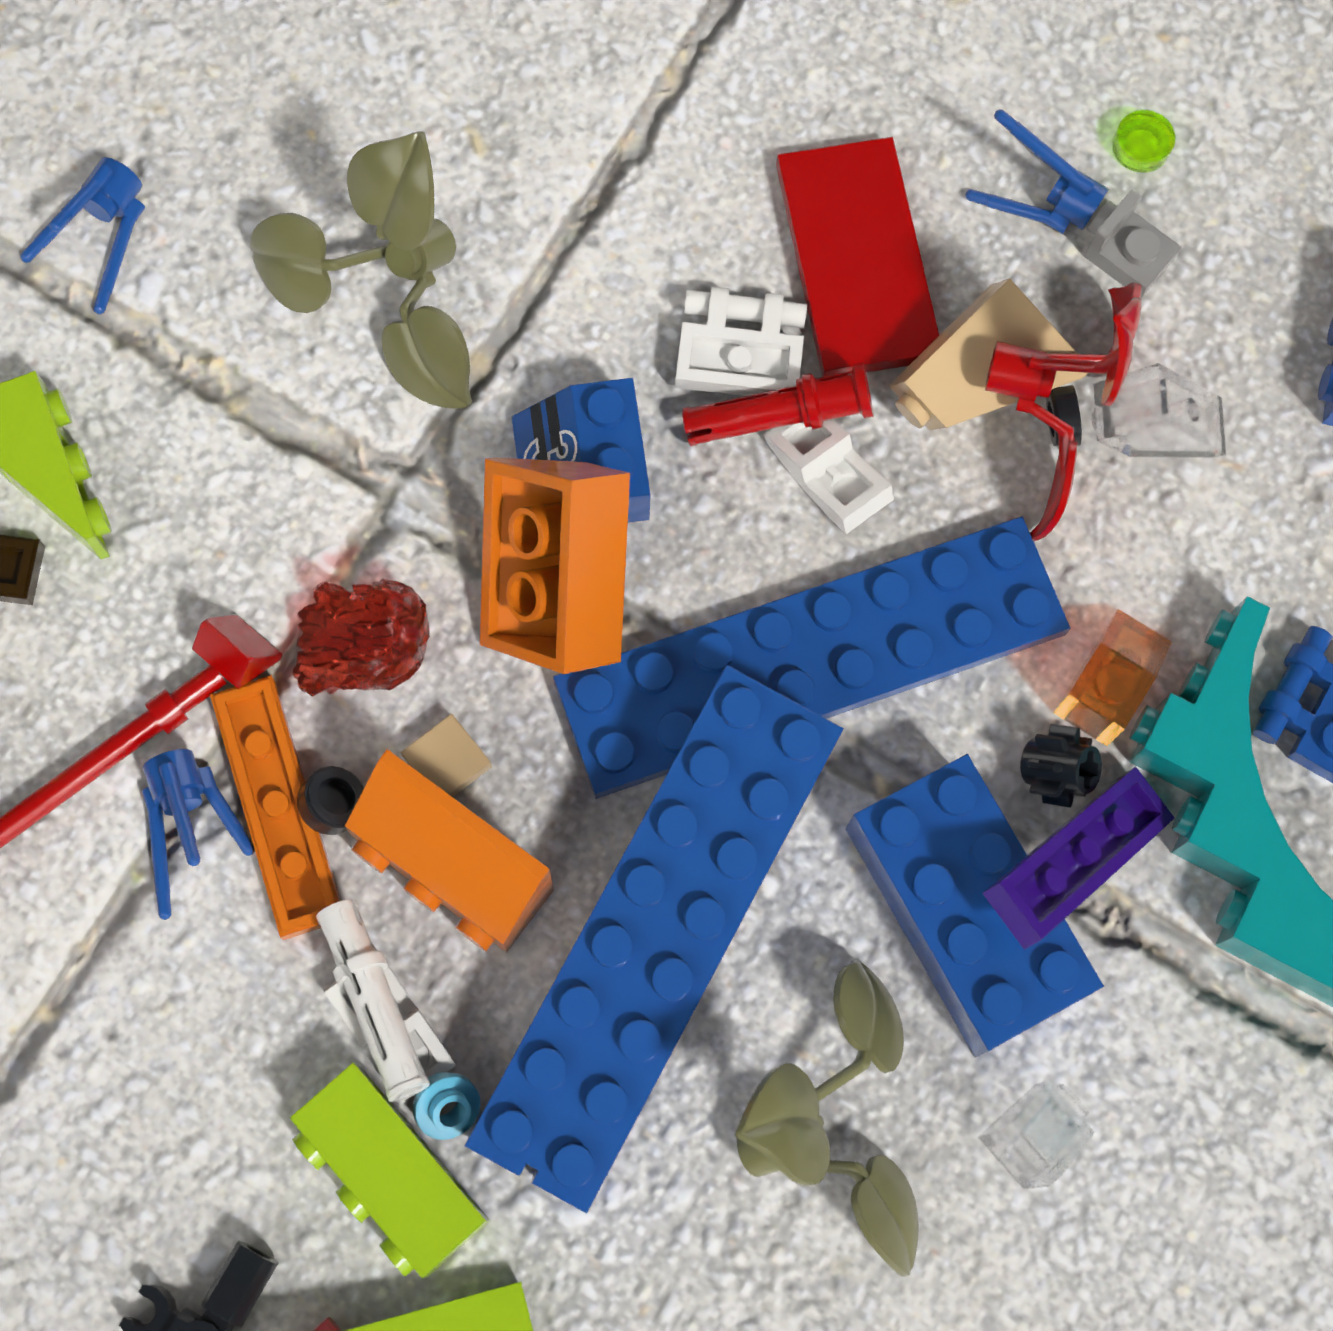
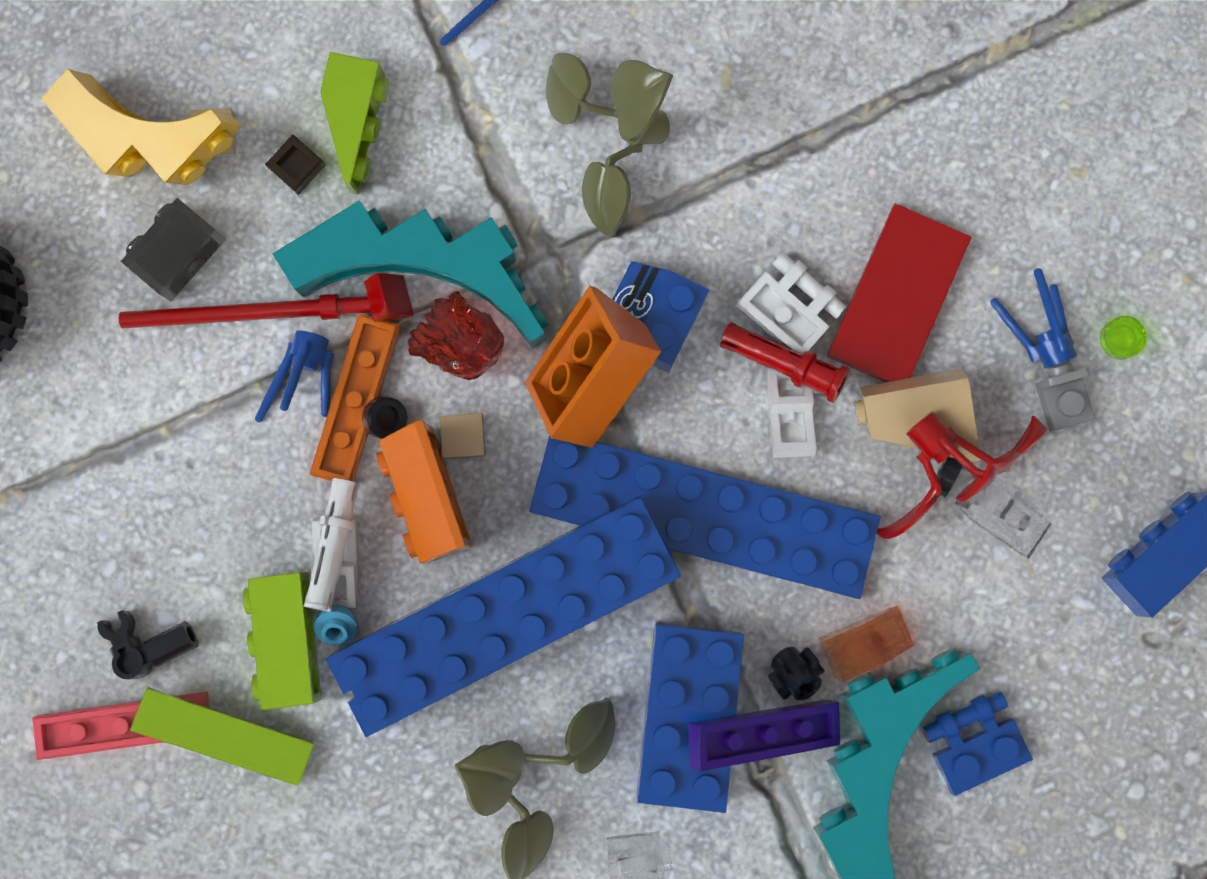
camera: 40 degrees right, 10 degrees up
(153, 612) = (354, 246): none -> teal arch

